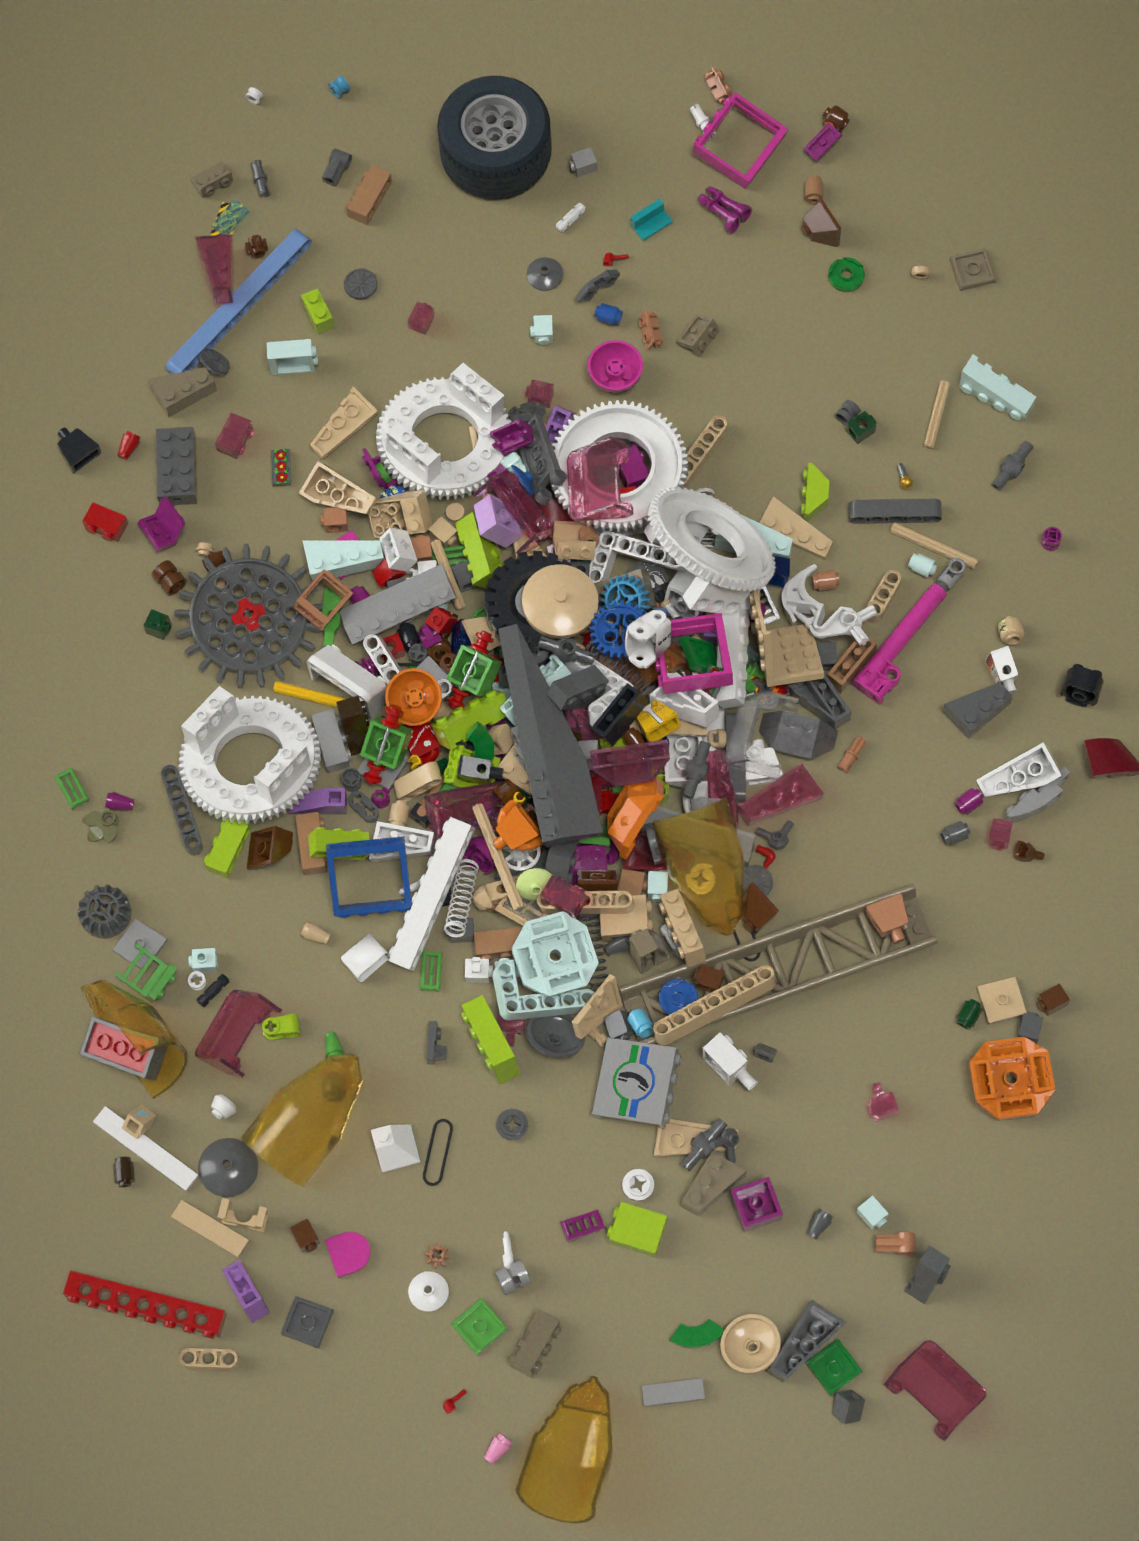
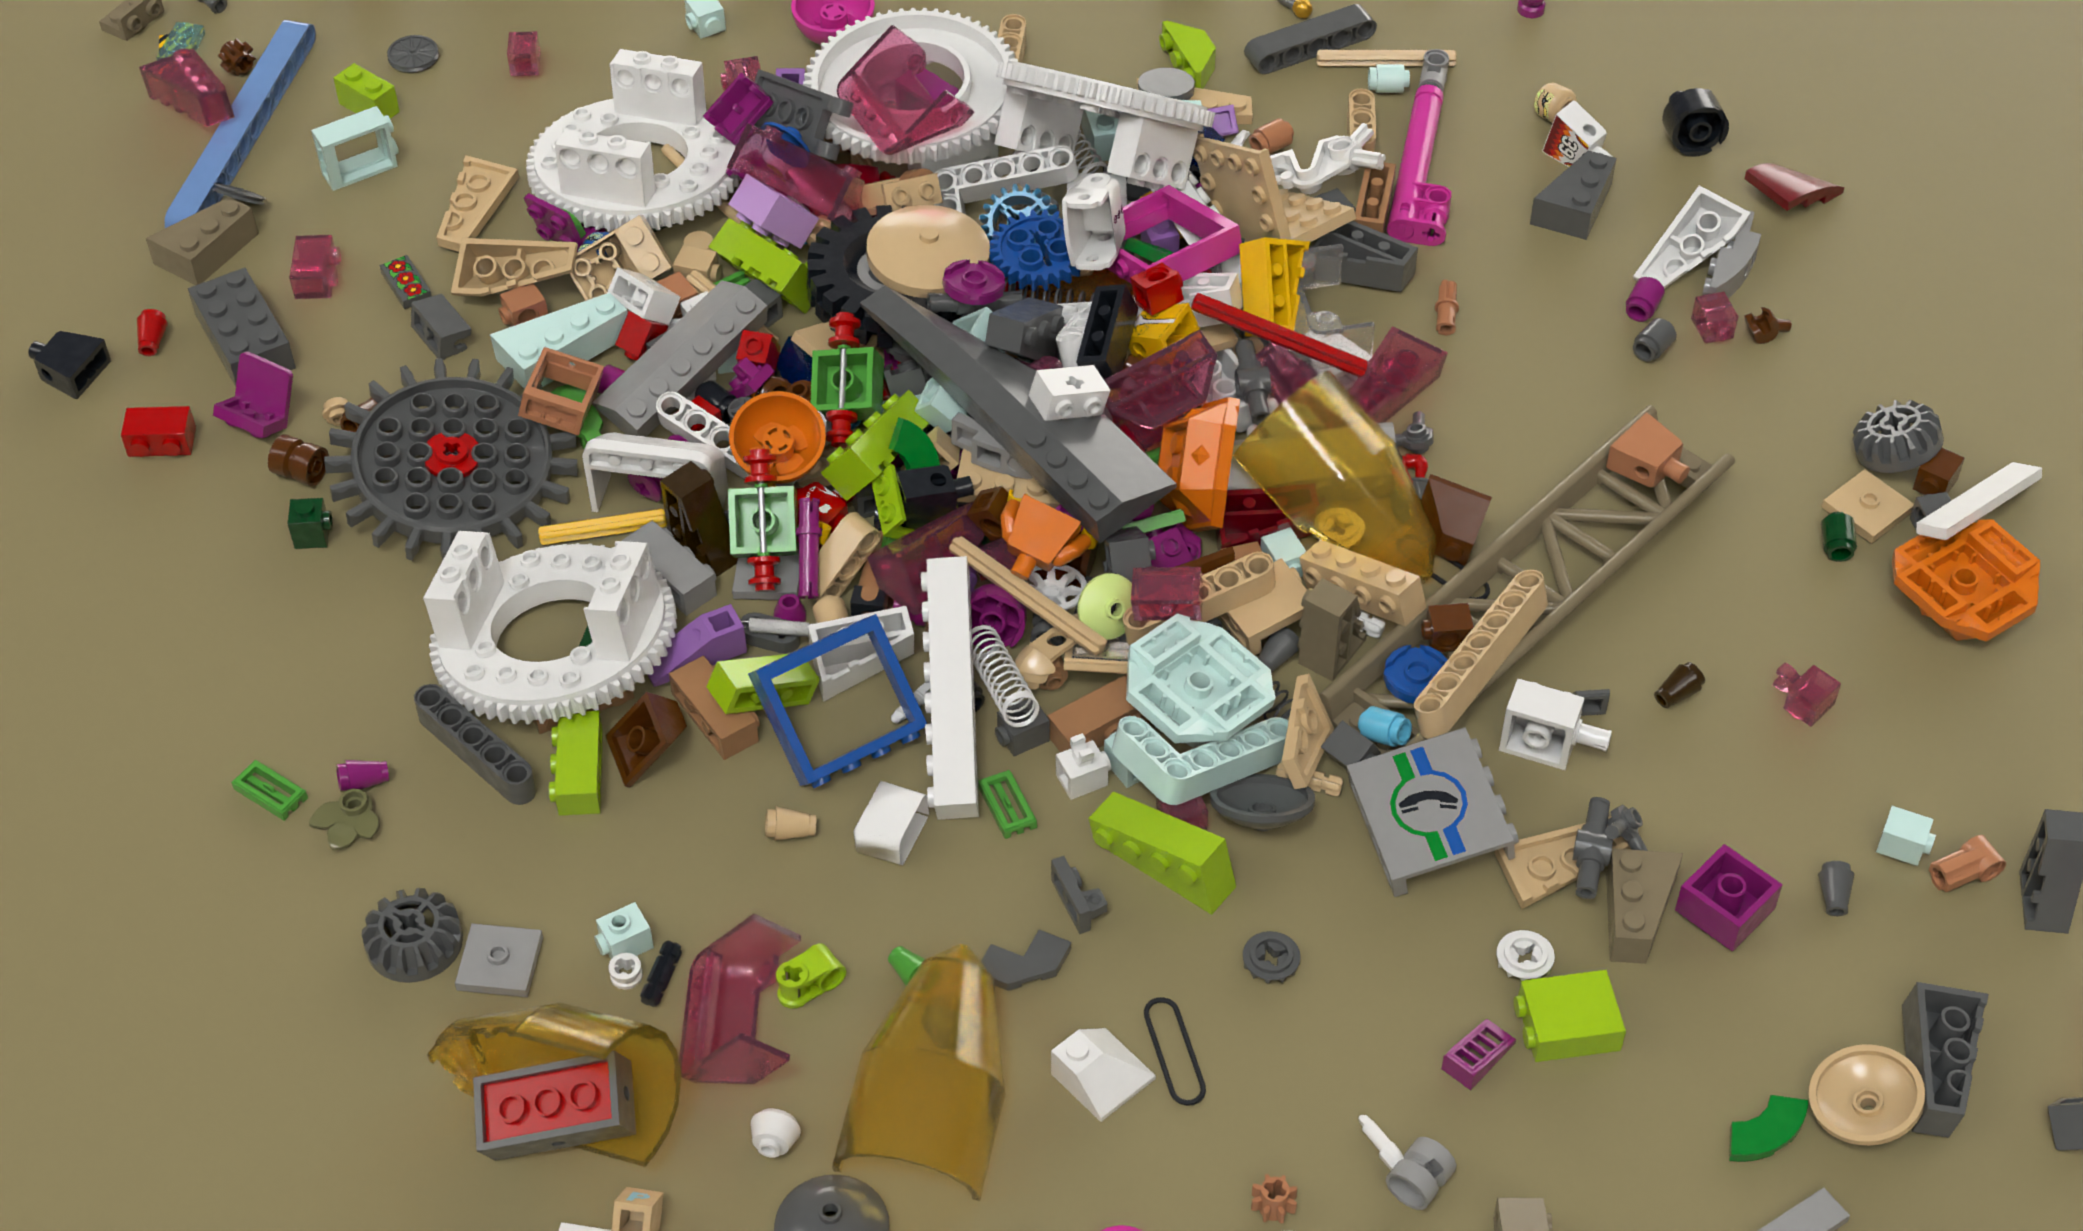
camera: 30 degrees left, 20 degrees down
(154, 986) = (559, 985): bright green plate -> none
(284, 512) = (439, 325): none -> dark grey hinge
(351, 775) = (732, 593): dark grey wheel -> none
(367, 809) = (778, 627): none -> white piece
(398, 1072) = (1041, 961): none -> dark grey tile
(405, 763) = (808, 547): none -> magenta pin
(568, 642) = (973, 282): none -> magenta tile
(570, 753) = (1069, 392): none -> white brick
(653, 843) = (1251, 481): dark grey tile -> none
(664, 695) = (1157, 288): none -> red brick
(721, 749) = (1279, 335): none -> red axle
(737, 713) = (1271, 278): none -> yellow wedge
(783, 514) = (1167, 83): none -> tile
(797, 734) = (1363, 301): flat silver wedge -> none
(803, 554) = (1225, 120): none -> medium lavender tile
(818, 1066) = (1680, 684): none -> dark brown cone
(834, 1367) = (2010, 1080): green tile -> none
(1045, 975) = (1898, 445): none -> dark grey gear
(1055, 1032) = (1978, 501): none -> white tile

